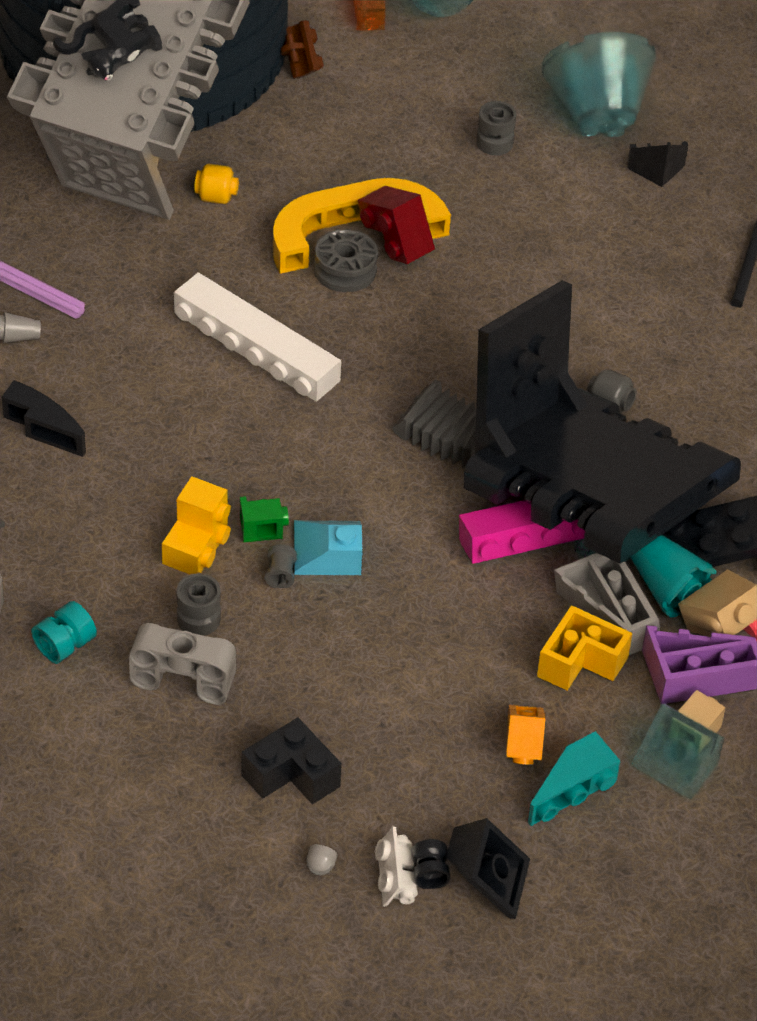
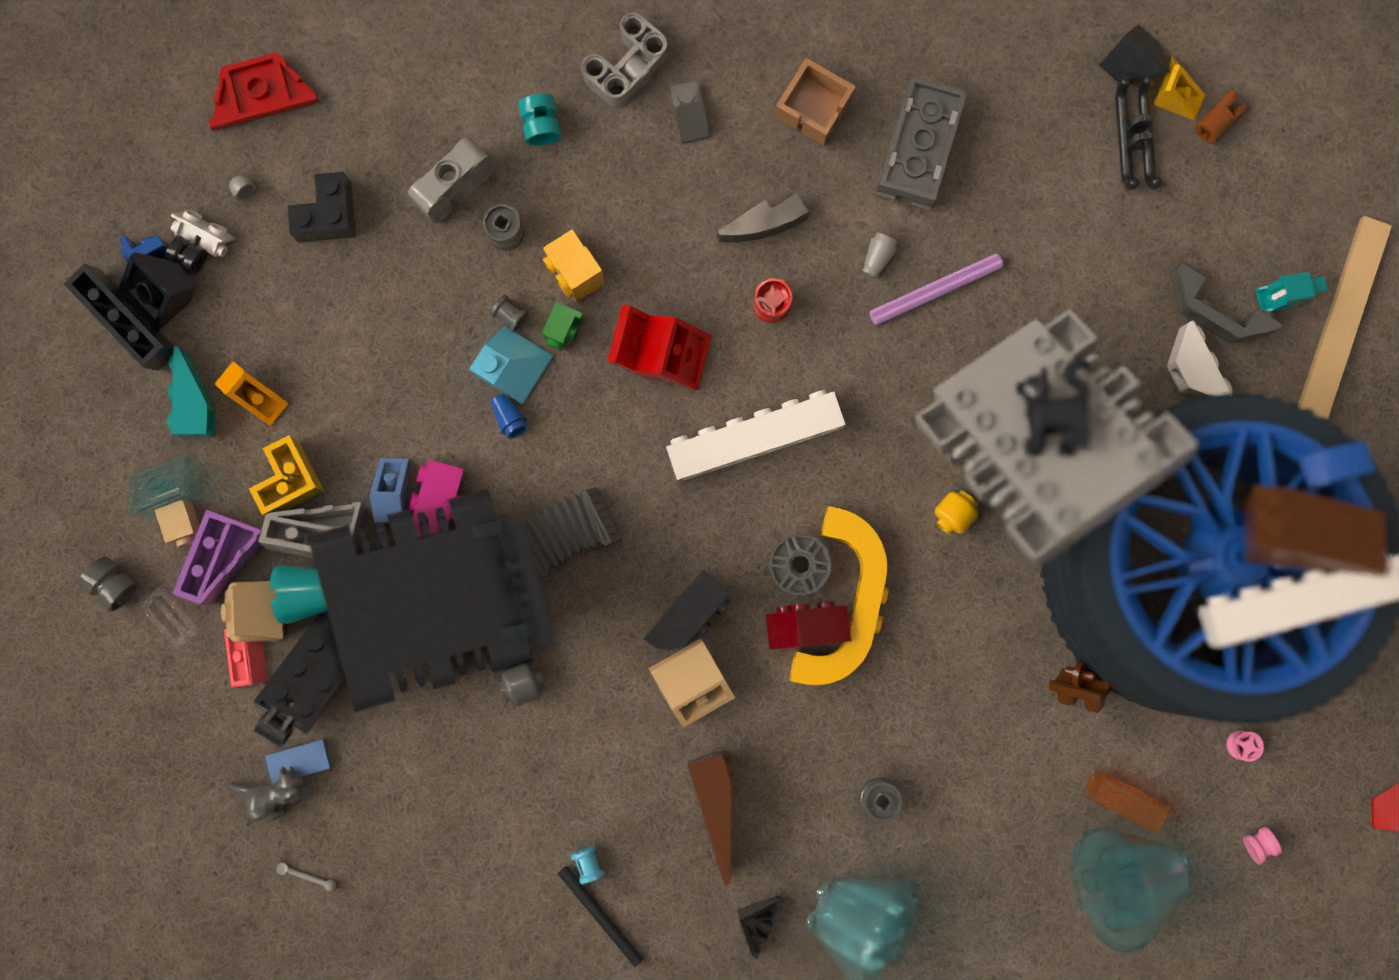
camera: 125 degrees right, 35 degrees up
(119, 374) = (772, 300): none -> red wheel
(205, 902) = (258, 90): none -> red wing
(229, 430) = (659, 347): none -> red bracket
(381, 518) = (509, 418): none -> blue cone
(451, 299) = (689, 613): none -> black brick
(456, 901) = (149, 246): none -> blue bracket
(508, 271) = (691, 683): none -> tan slope
(522, 570) = (390, 488): none -> medium blue slope
(541, 876) = (120, 317): none -> black brick
(594, 213) = (714, 793): none -> reddish brown slope
(716, 284) = (587, 864): none -> medium azure bush

